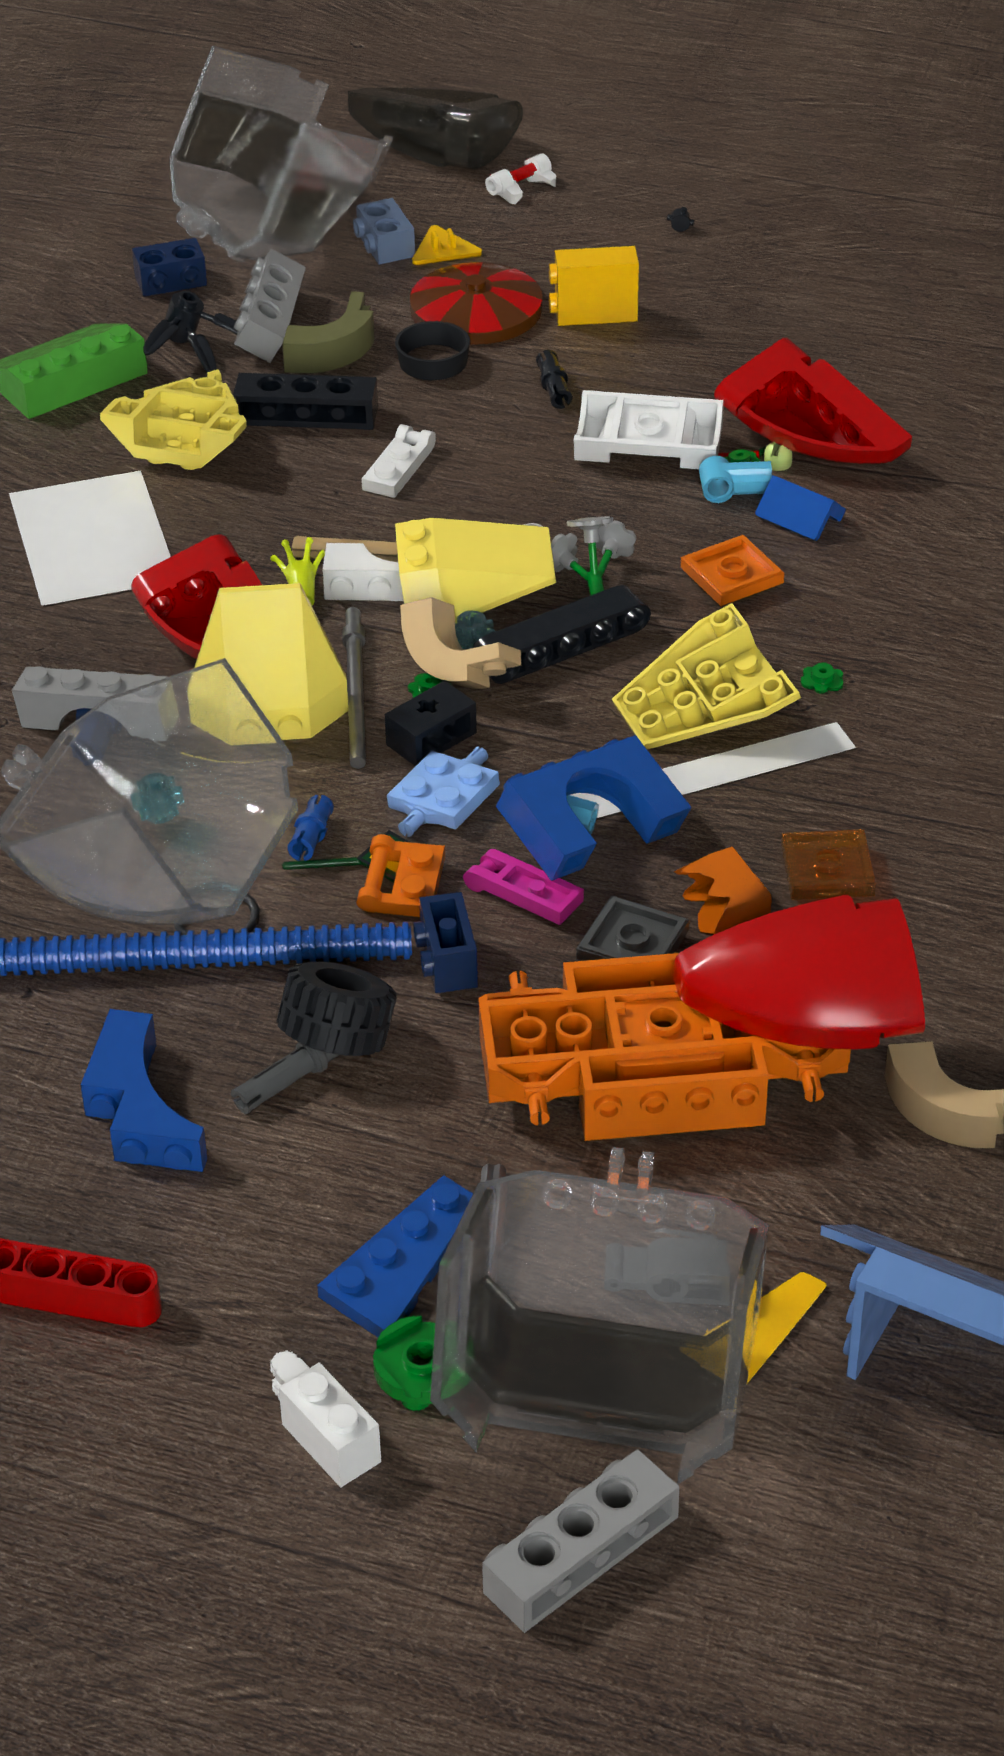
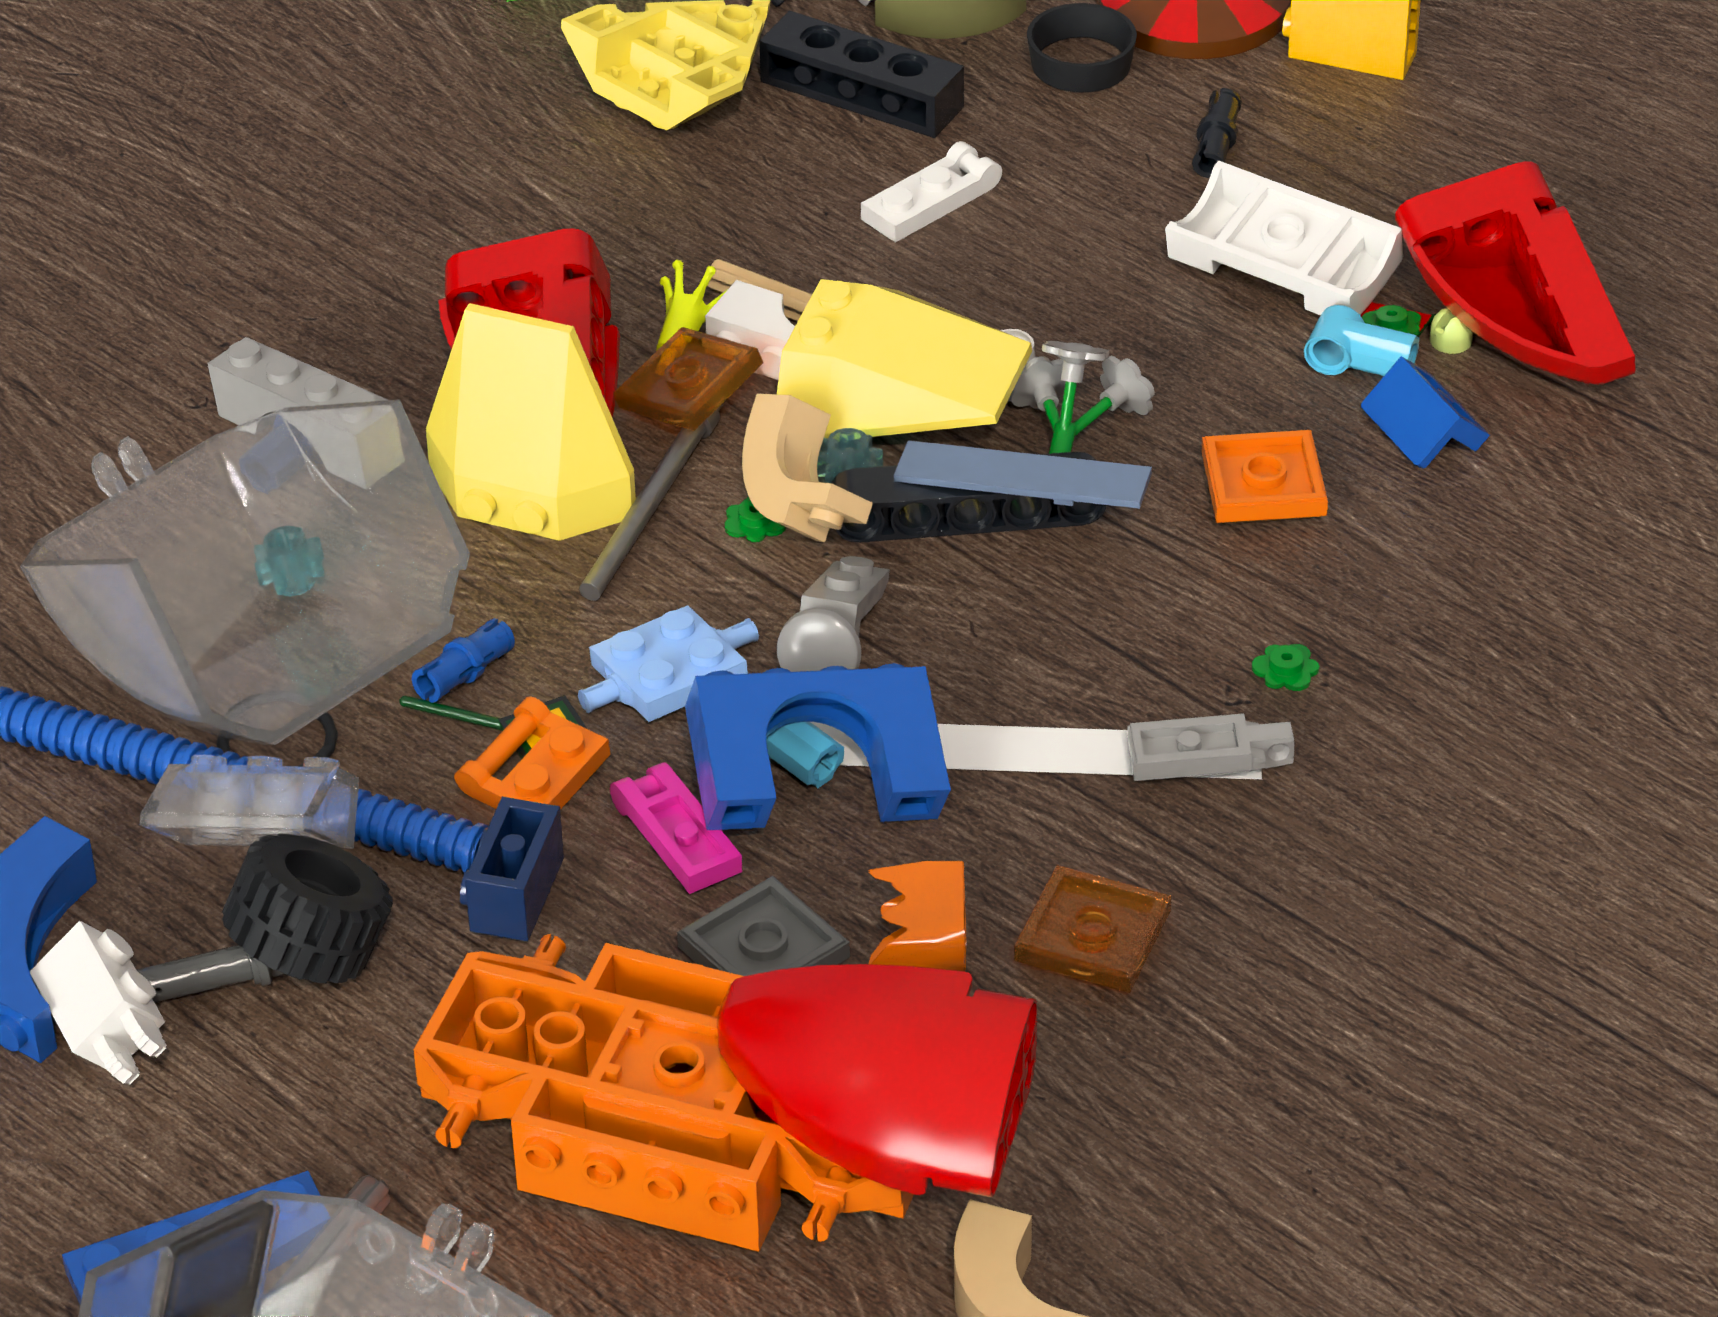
camera: 25 degrees right, 0 degrees up
(89, 536) = (471, 179): white sticker -> none
(233, 1115) = (100, 1000): none -> white hinge
(250, 953) = (241, 803): none -> clear slope
(344, 607) = (688, 378): none -> clear orange plate
(430, 722) = (710, 566): black brick -> none
(536, 729) = (830, 617): none -> light grey piece
(598, 607) = (1023, 474): none -> sand blue piece
(704, 684) = (1107, 626): light yellow wedge -> none
(817, 736) = (1207, 746): none -> light grey hinge

